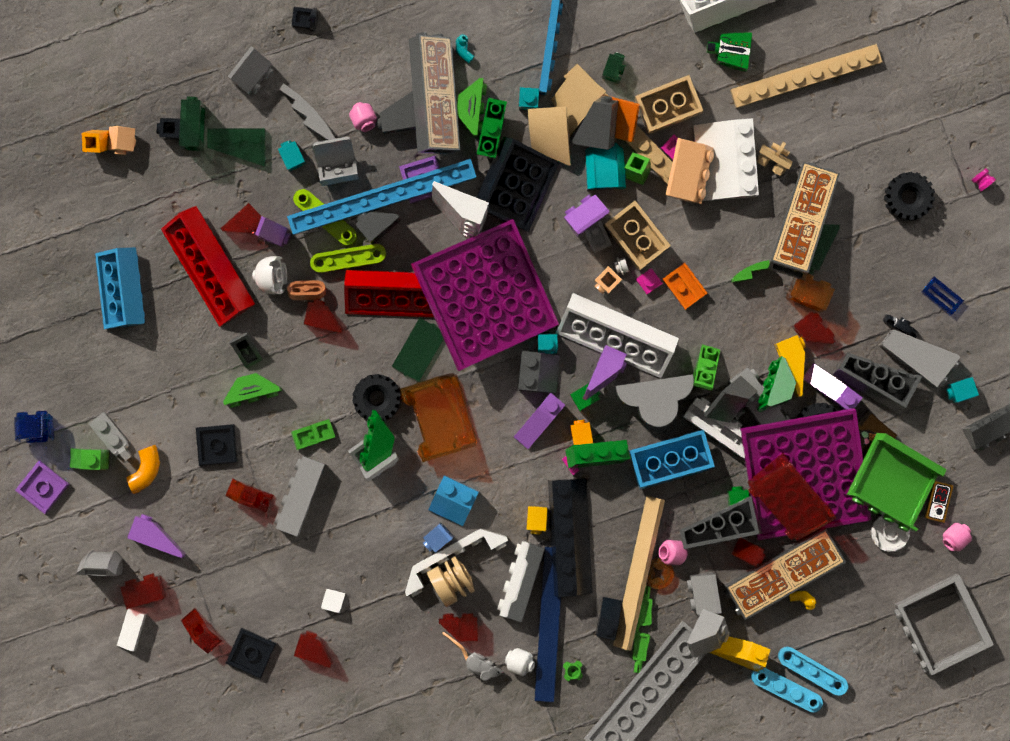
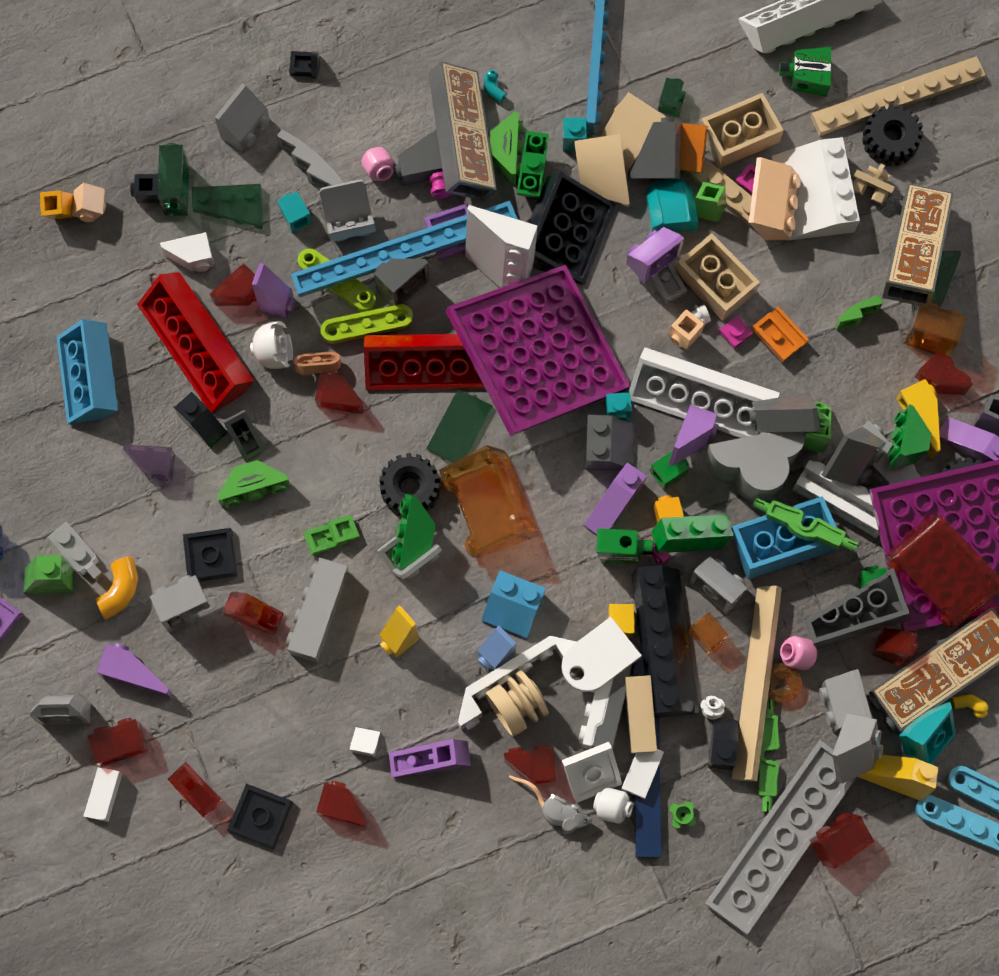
camera: 10 degrees left, 15 degrees down
(172, 368) = (153, 461): none -> clear purple slope
(192, 488) = (179, 602): none -> light grey brick
(206, 187) = (190, 252): none -> white slope
(211, 334) = (200, 419): none -> black slope
(362, 522) = (398, 633): none -> yellow slope
(382, 618) = (430, 758): none -> medium lavender slope
(411, 139) = (438, 186): none -> dark pink wheel
(505, 637) = (592, 772): none -> white plate
(517, 548) = (600, 656): none -> white tile
(535, 461) = (613, 543): none -> green torso
(544, 636) = (642, 773): none -> white tile
(545, 596) = (640, 714): none -> tan tile
(602, 594) = (712, 712): none -> white plate
(604, 532) = (708, 633): none -> clear orange brick
(615, 494) = (718, 584): none -> light grey slope
(679, 364) = (785, 414): none -> dark grey slope
(691, 699) = (841, 840): none -> clear red brick
(696, 459) = (818, 530): none -> bright green piece
(767, 622) = (929, 734): none -> teal slope
(792, 128) = (888, 149): none -> black tyre

